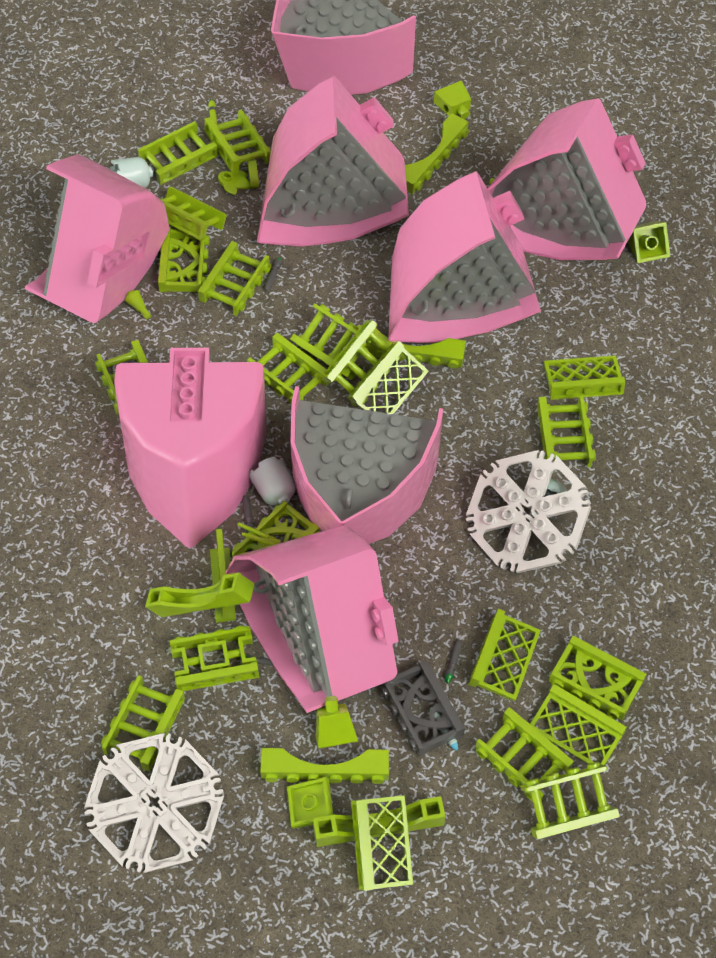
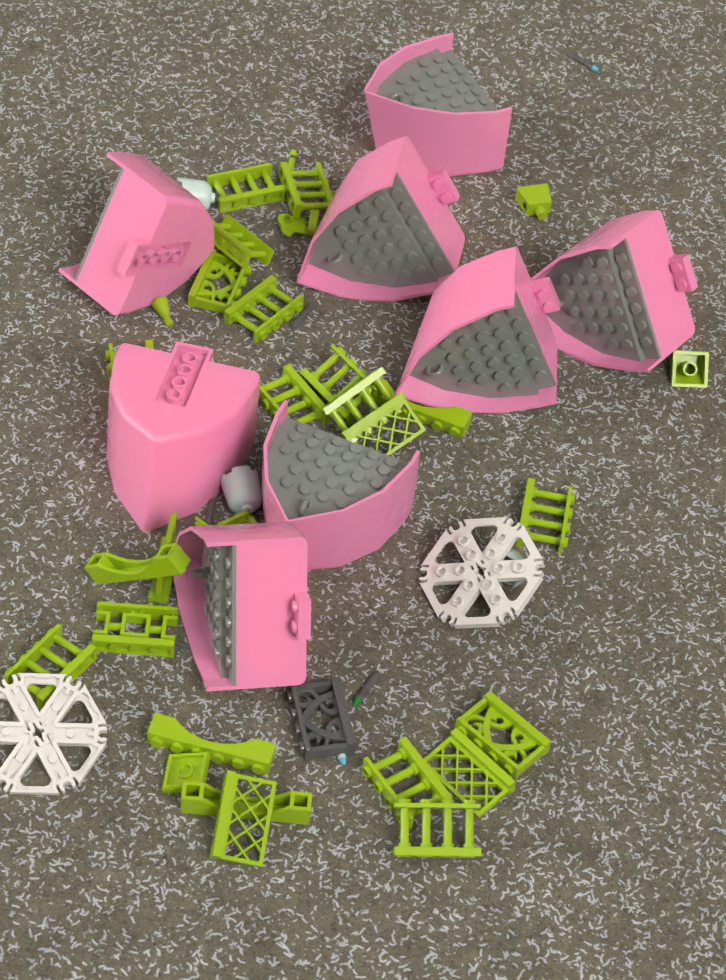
camera: 10 degrees right, 10 degrees down
(334, 724) = (231, 709): lime torso -> none
(453, 131) = (524, 228): lime arch -> none
(487, 653) = (401, 688): lime fence -> none
(584, 387) = (581, 481): lime fence -> none

